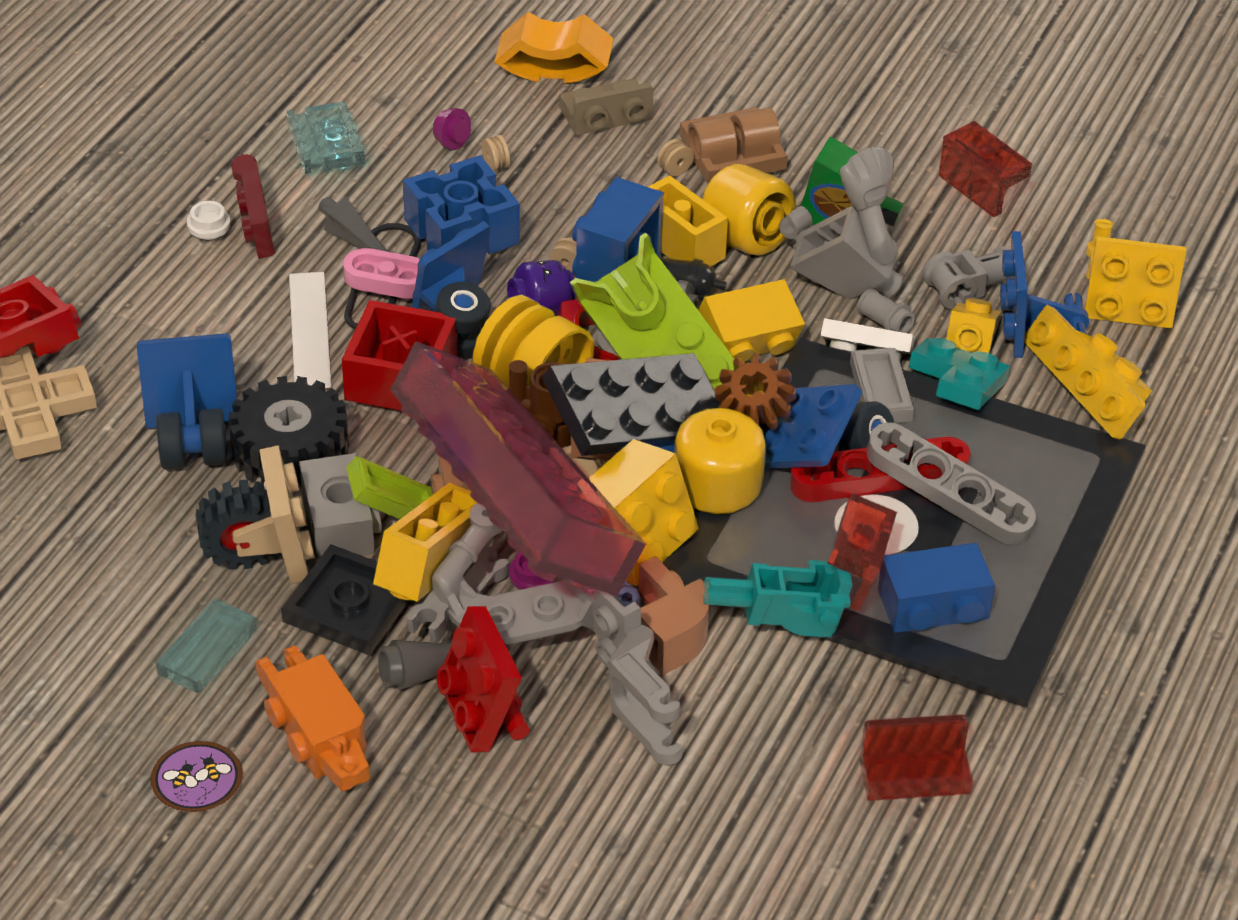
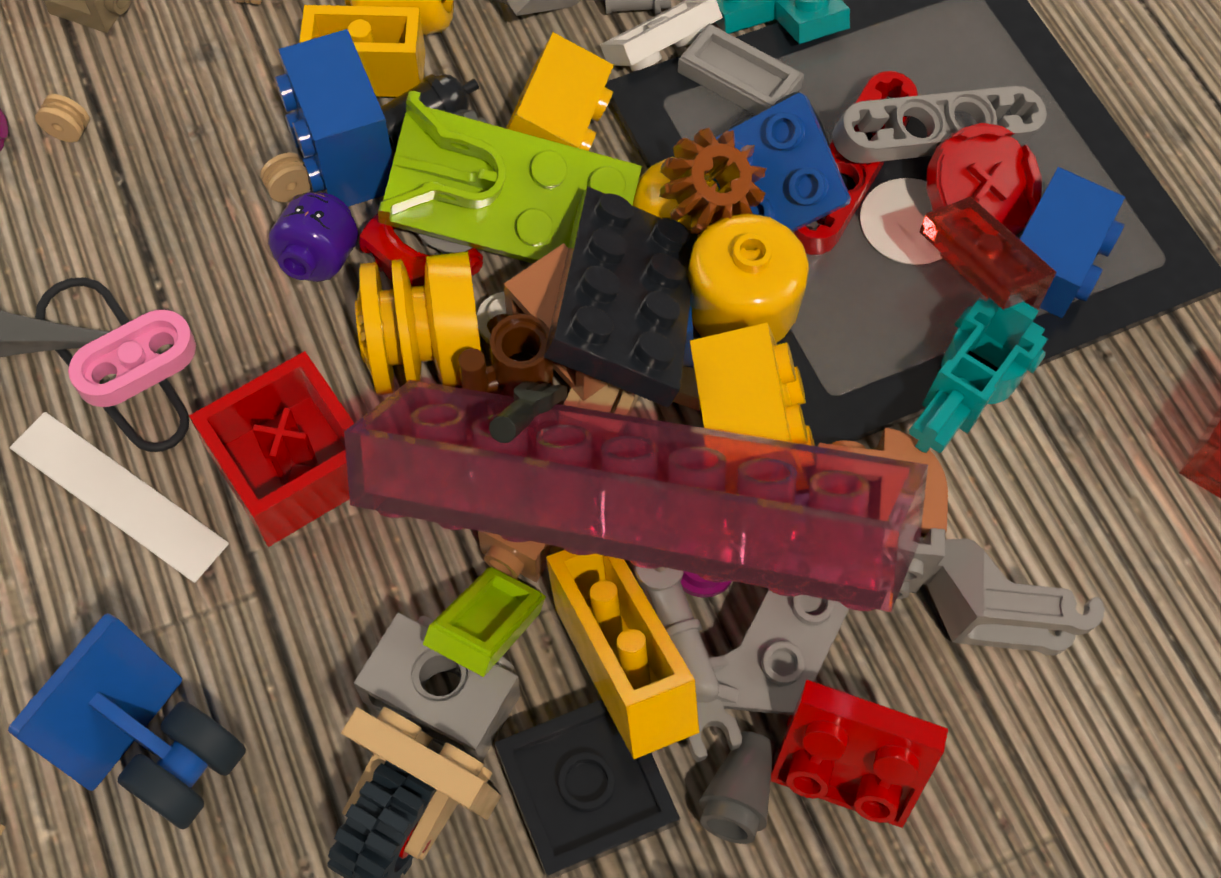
camera: 50 degrees left, 20 degrees up
(287, 414) = (293, 676): black wheel -> none
(450, 281) = (235, 330): blue plate -> none
(459, 200) = (126, 218): blue brick -> none
(501, 394) = (529, 401): none -> pearl dark grey piece
(932, 518) = (991, 169): none -> red tile

